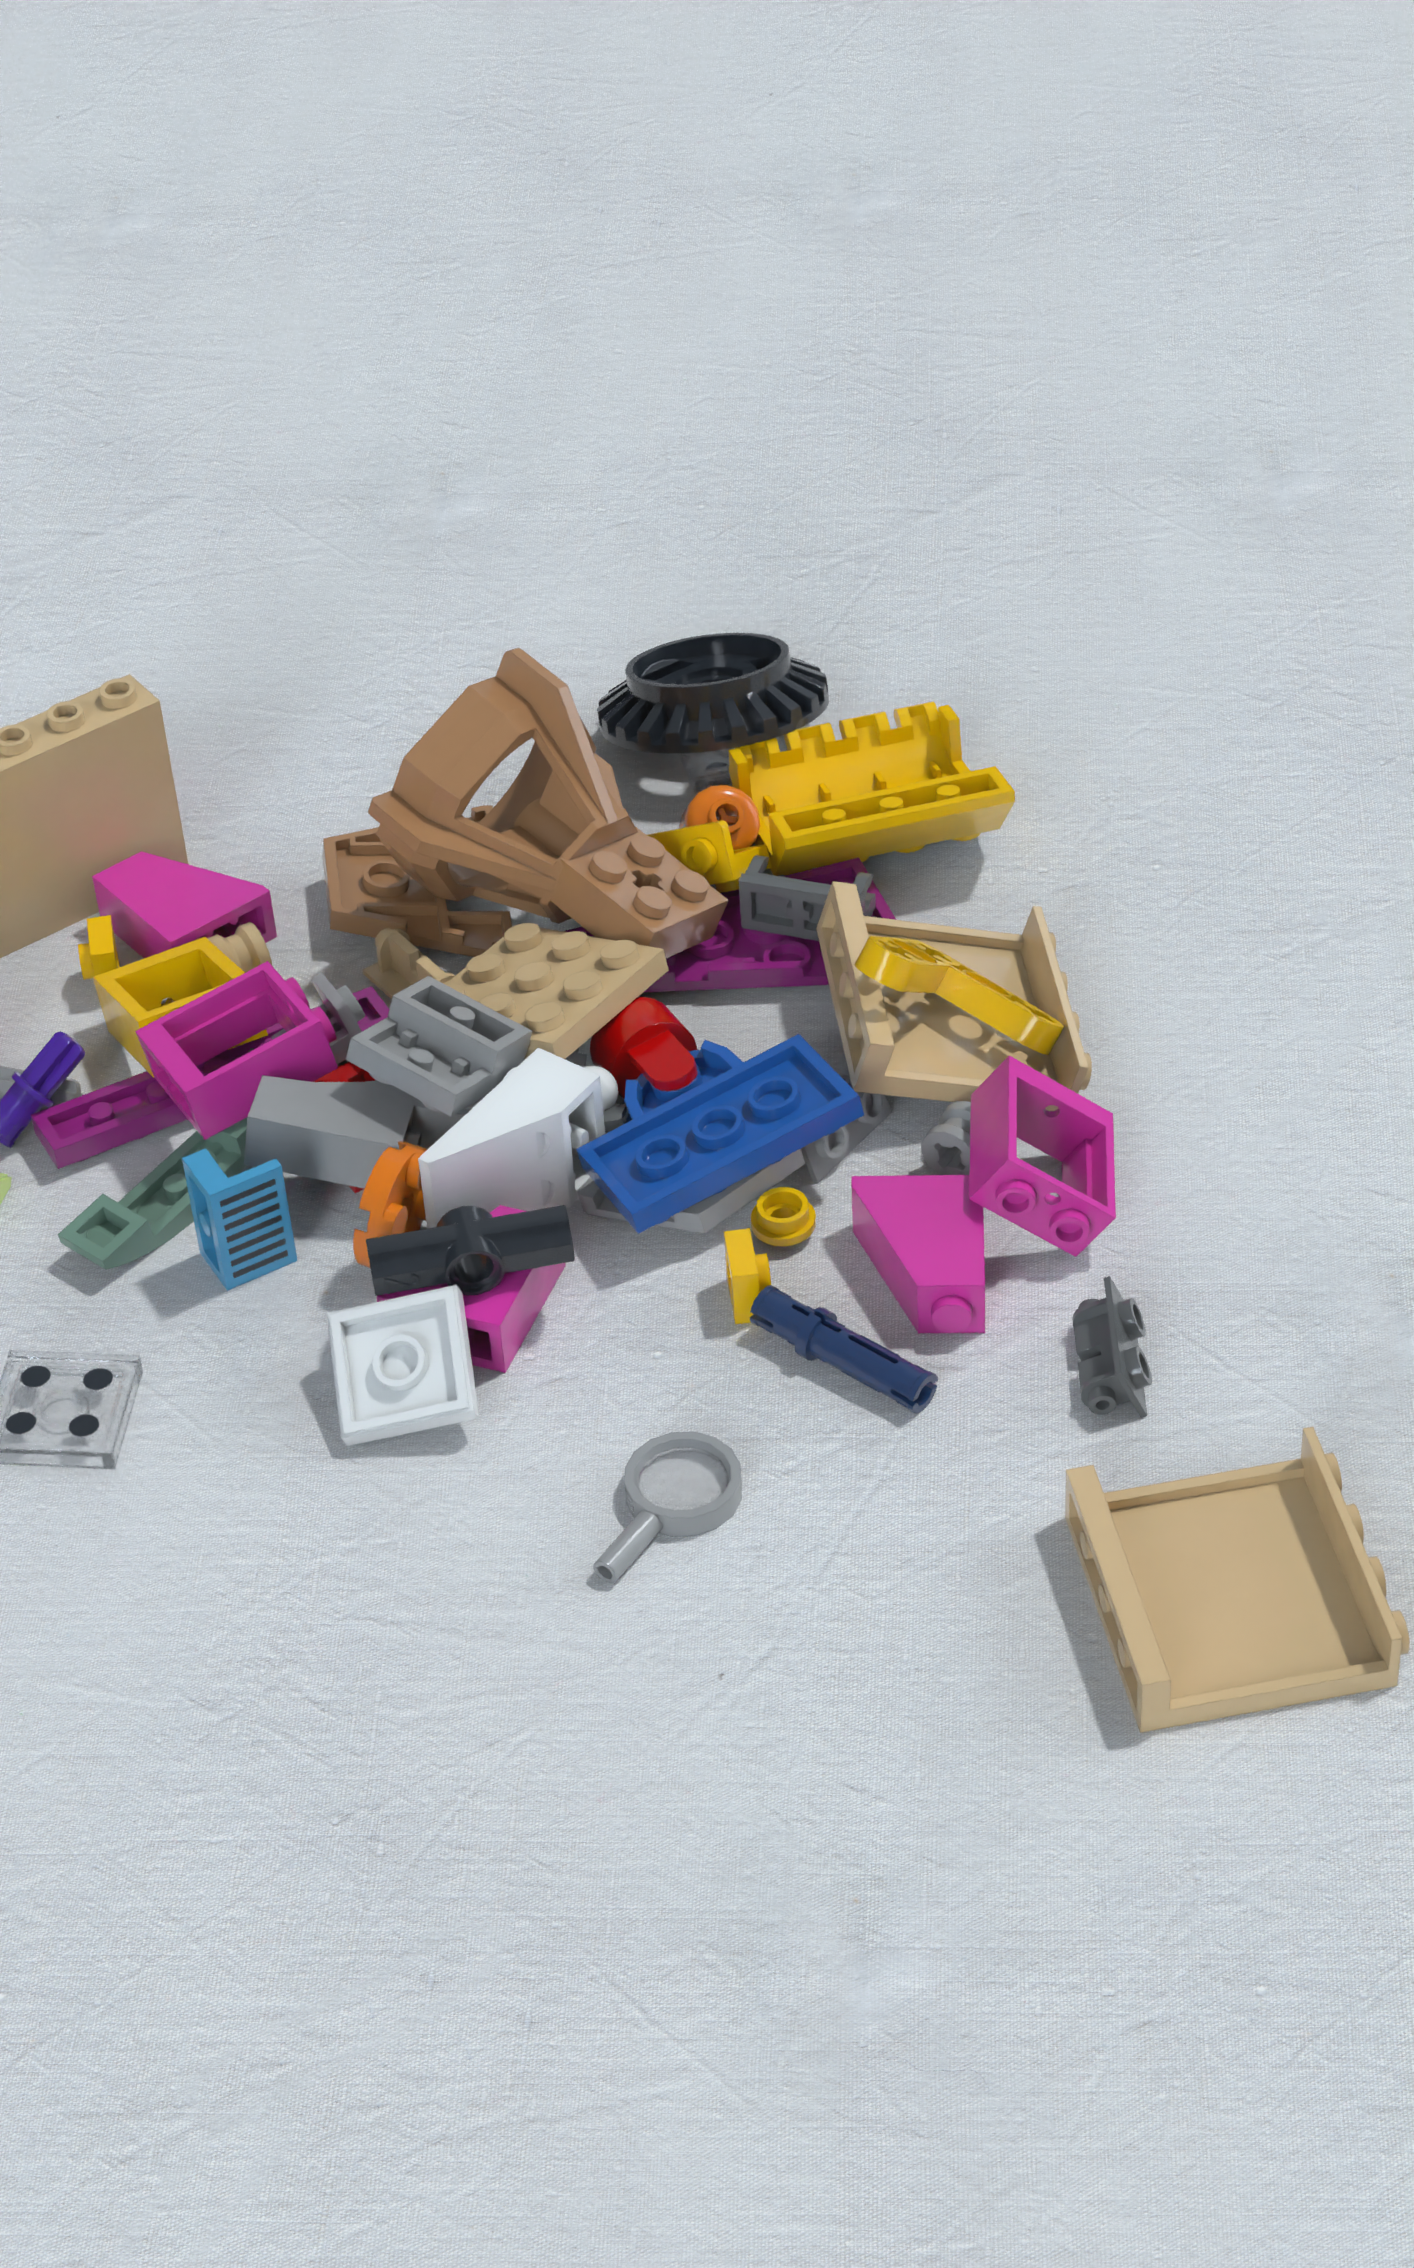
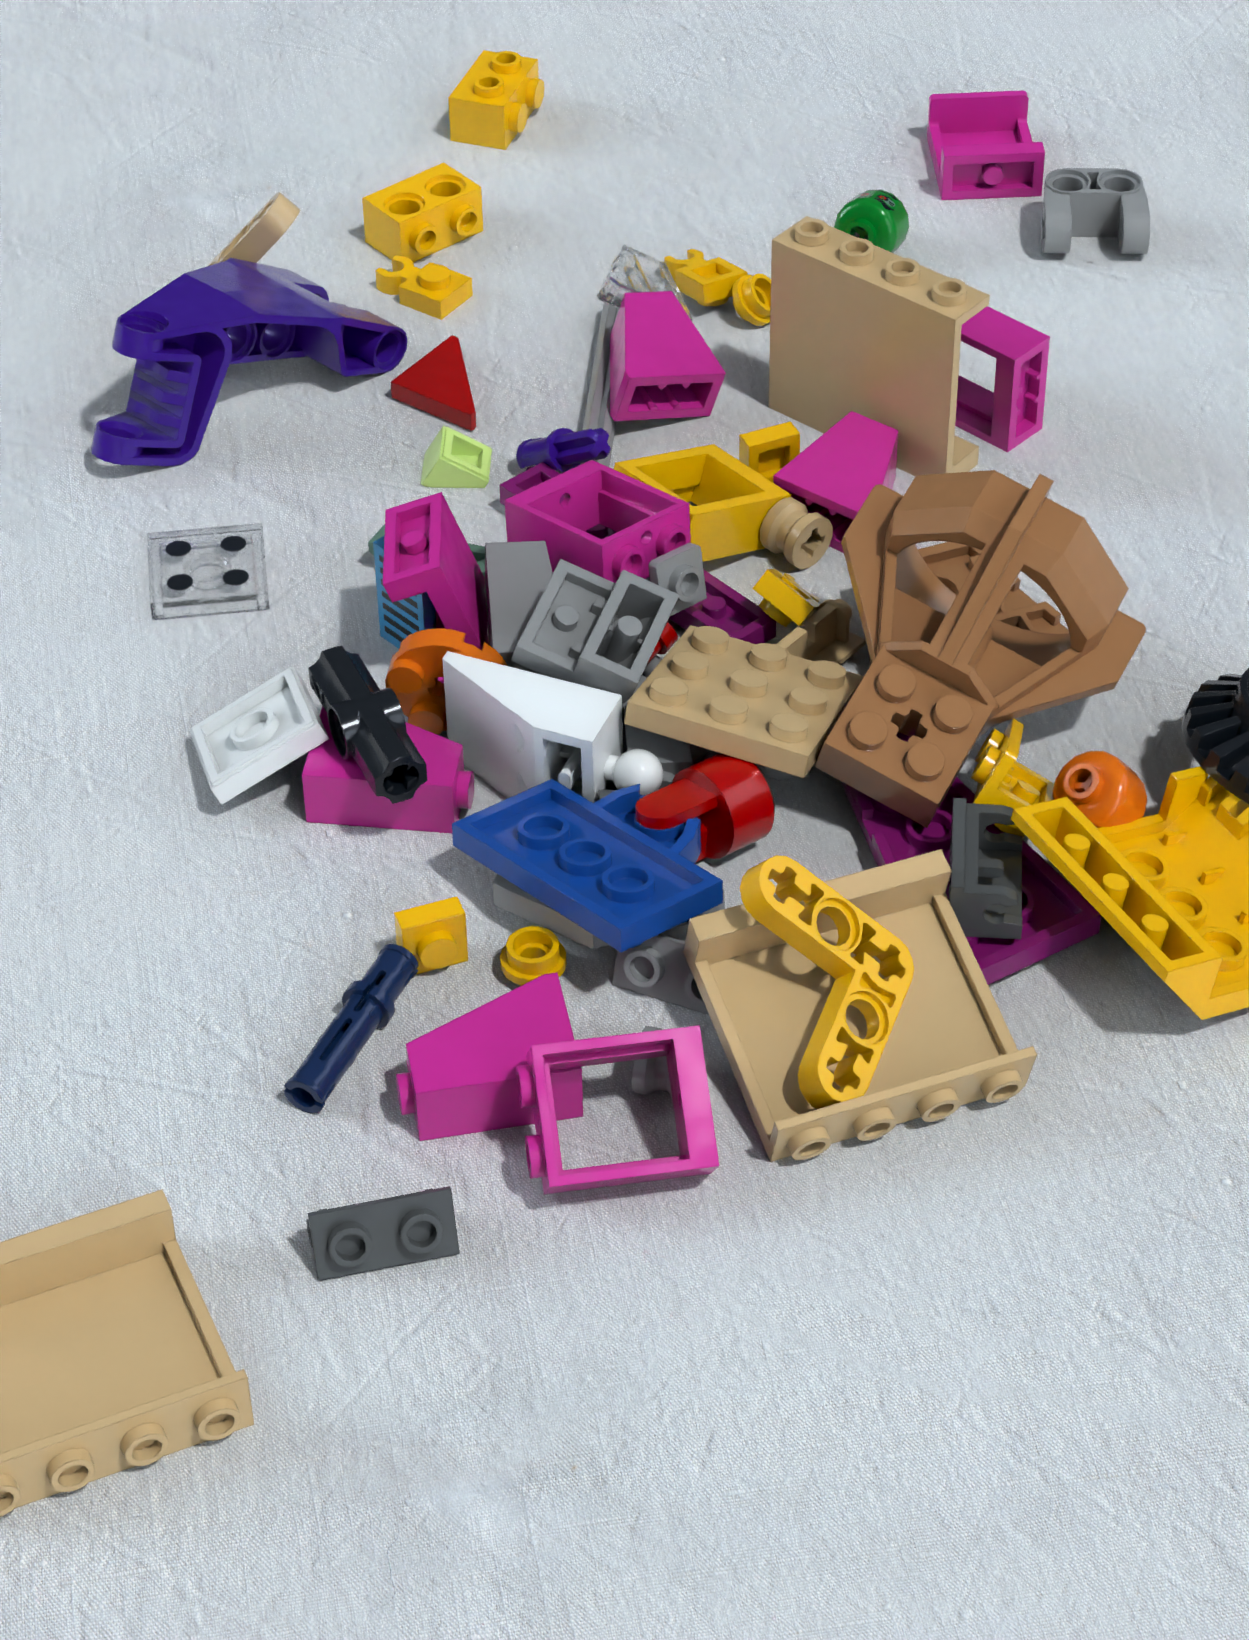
camera: 75 degrees right, 0 degrees up
(287, 1153) = (432, 556): none -> dark pink panel
(363, 965) = (785, 599): none -> yellow plate
(676, 1489) = (155, 955): light grey piece -> none

